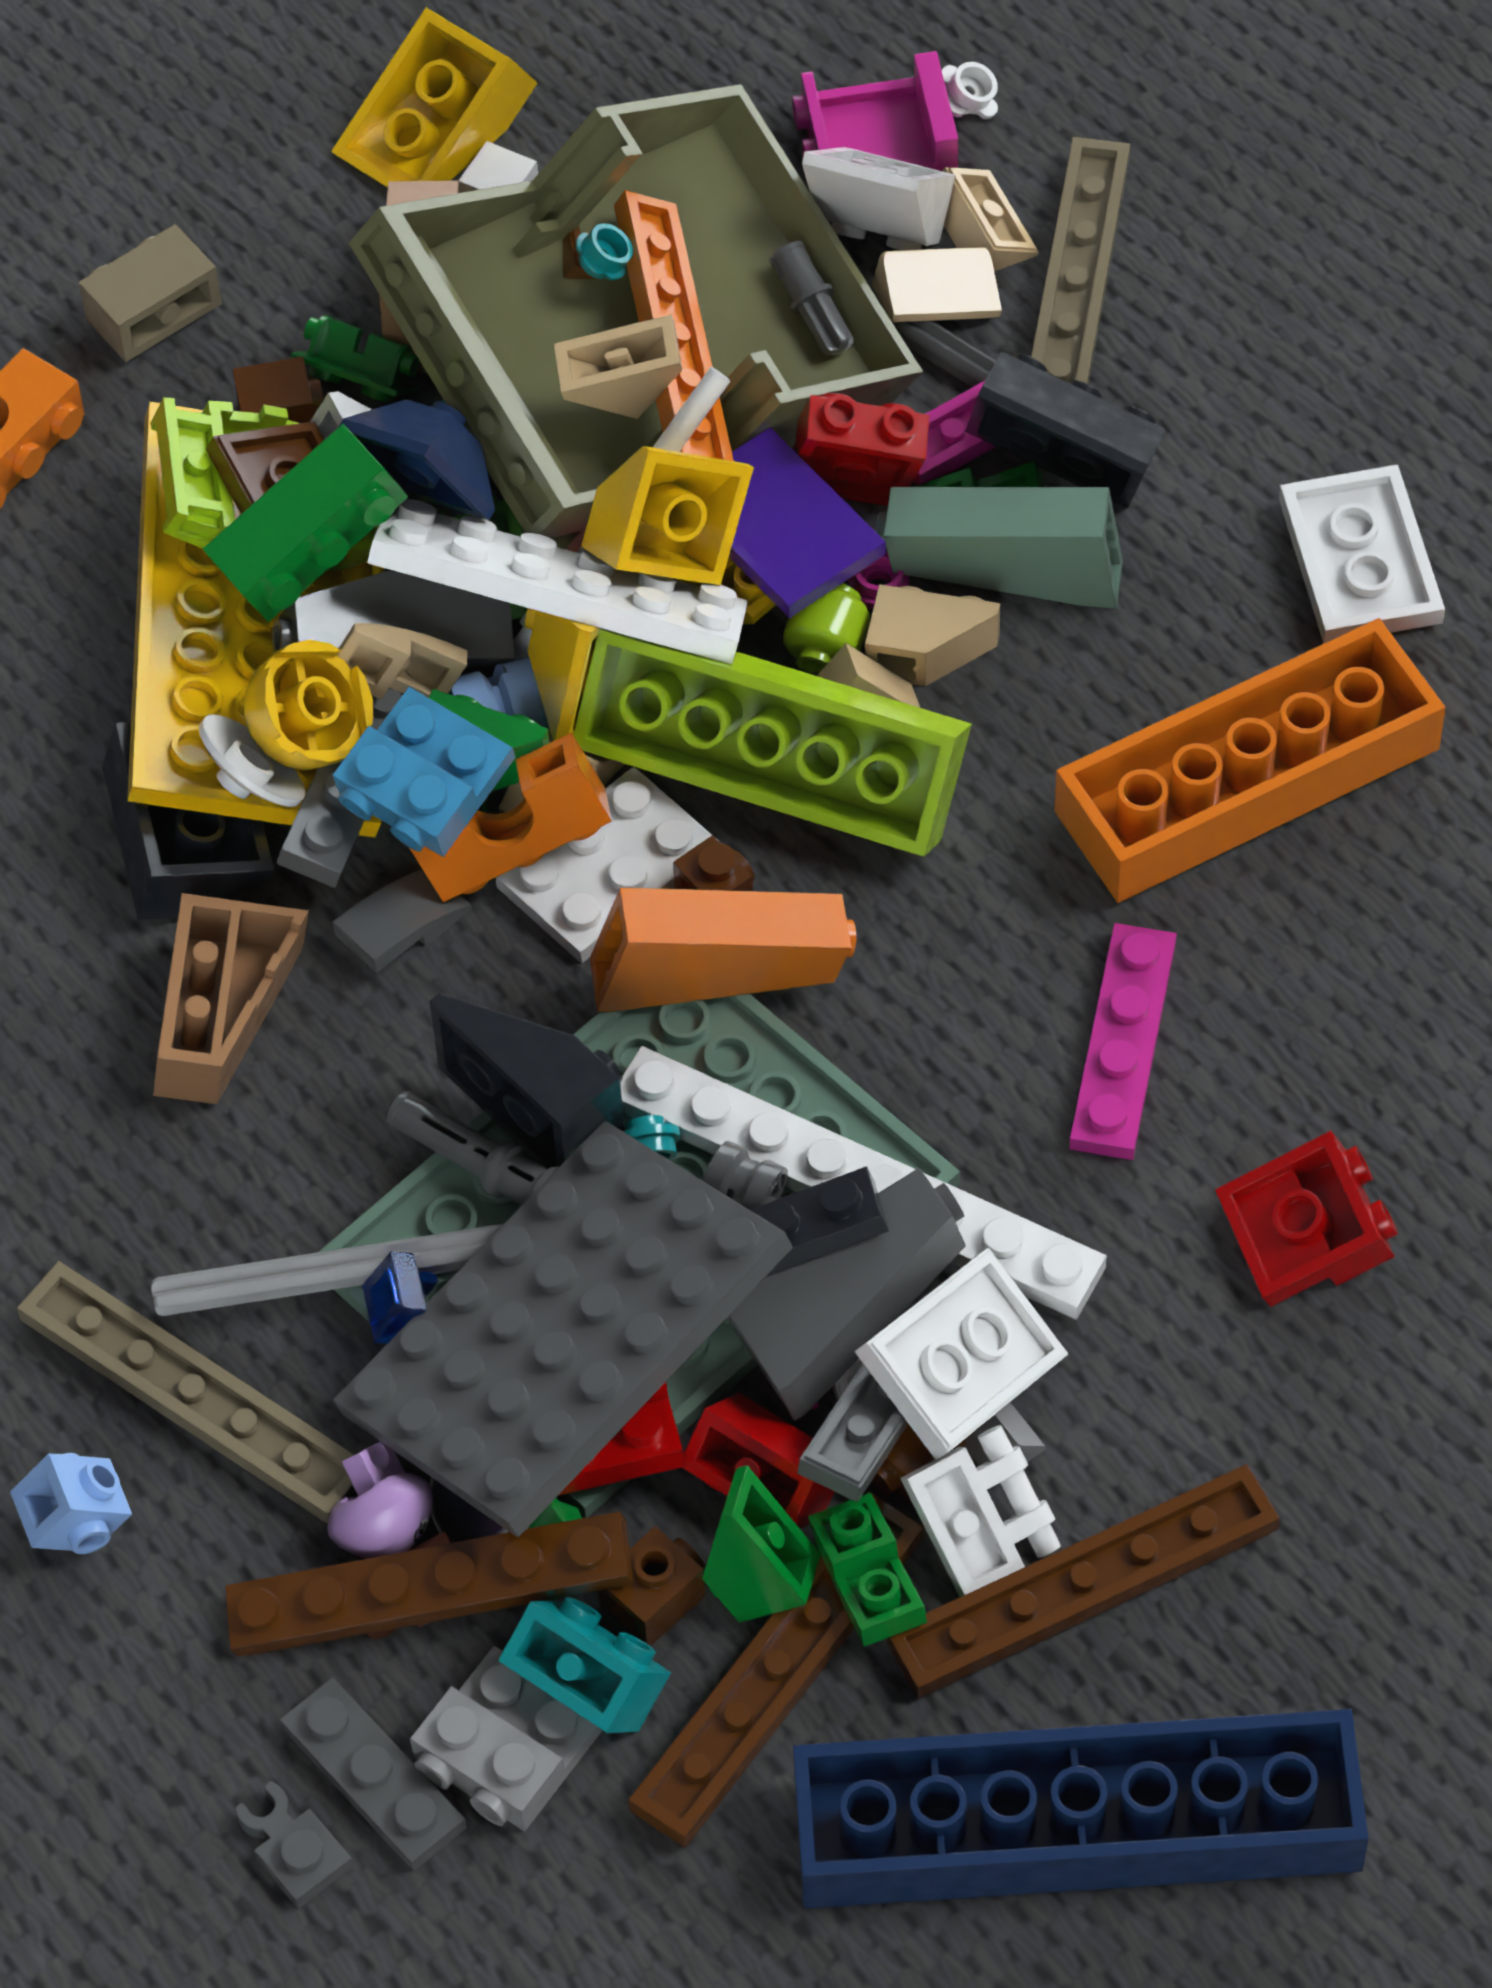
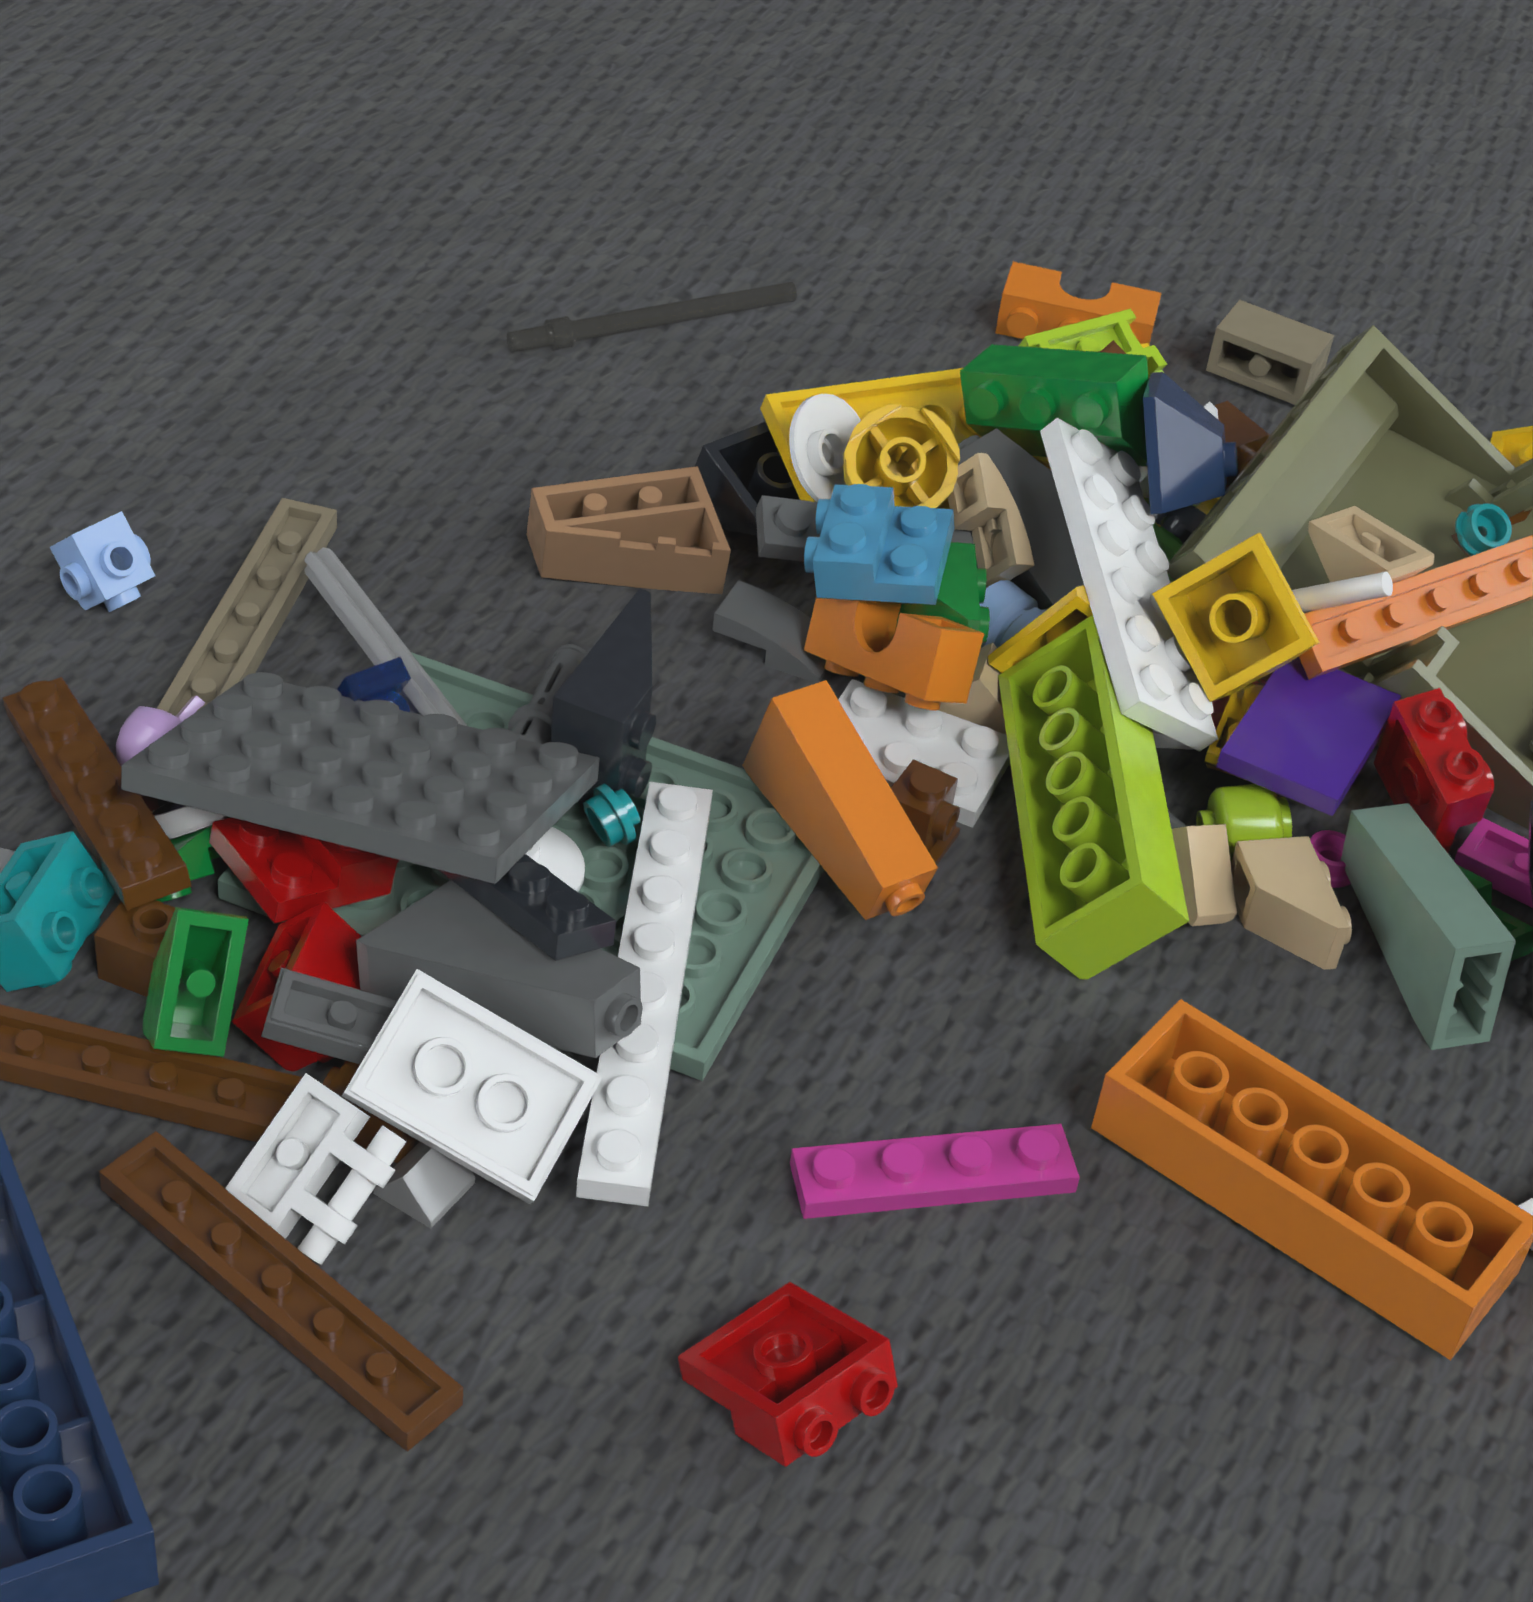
camera: 60 degrees right, 15 degrees down
(745, 1179) = (603, 876): dark grey wheel -> none
(867, 1569) = (220, 1088): green slope -> none

